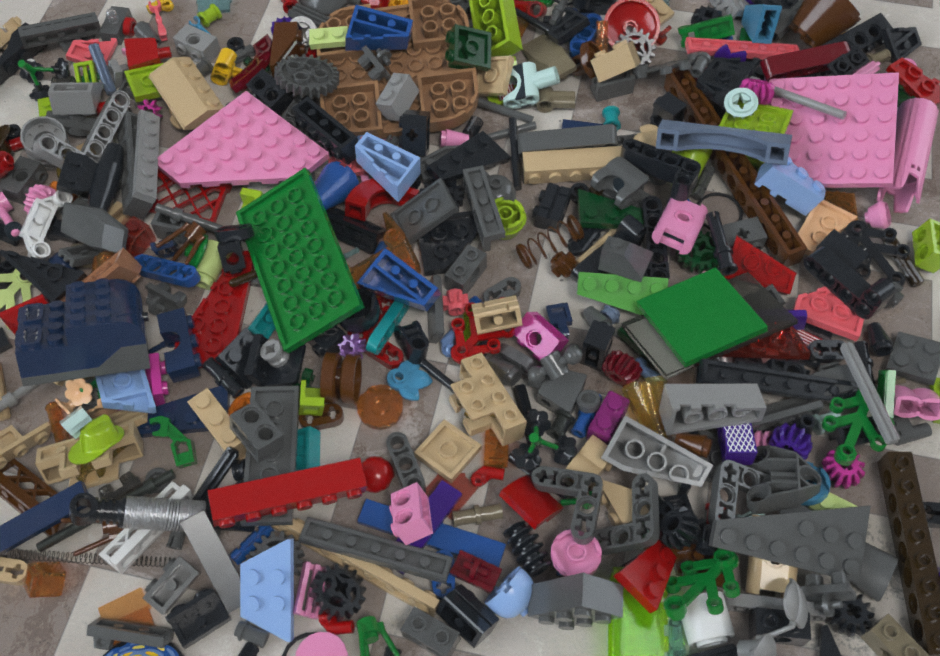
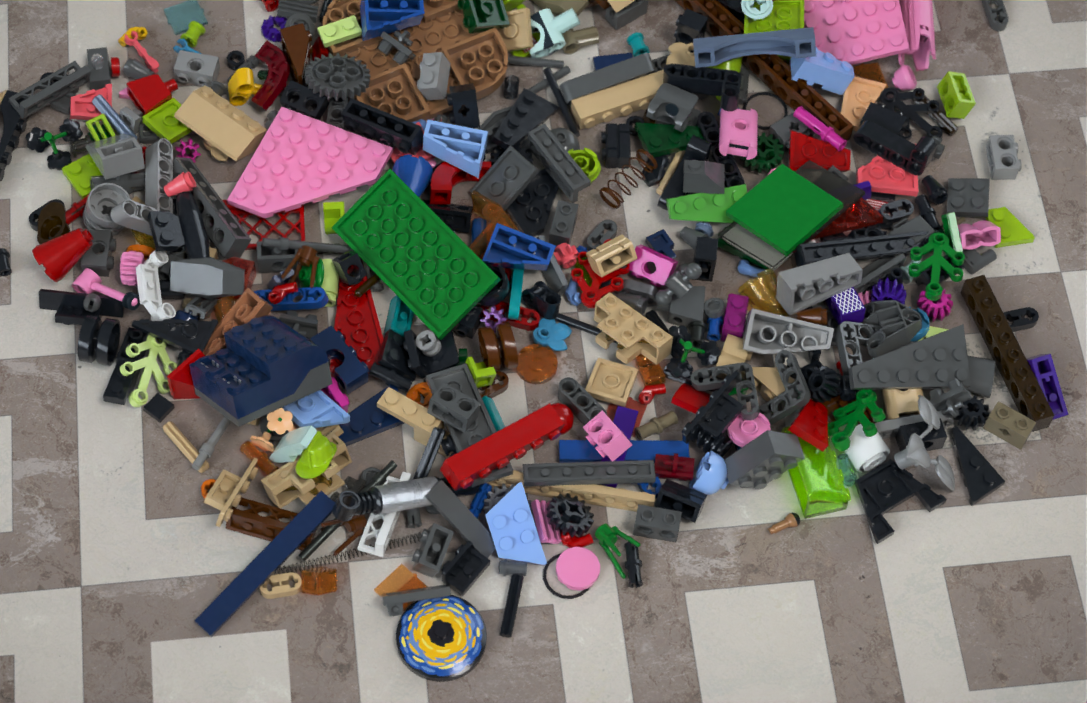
camera: 25 degrees left, 0 degrees up
(116, 133) = (182, 183): none -> coral cone
(146, 157) = (219, 196): light grey plate -> none
(156, 261) = (280, 291): none -> red arm
(169, 430) = (367, 434): green piece -> none
(234, 232) = (344, 246): black beam -> none
(452, 138) = (497, 102): bright pink cone -> none
(542, 526) = (718, 413): none -> black bracket
(563, 264) = (647, 196): reddish brown gear -> none
(621, 368) = (731, 273): dark red gear -> none
(722, 251) = (783, 147): black pin -> none
(774, 248) = (826, 133): none -> dark pink pin
(869, 393) = (938, 235): light grey axle -> none

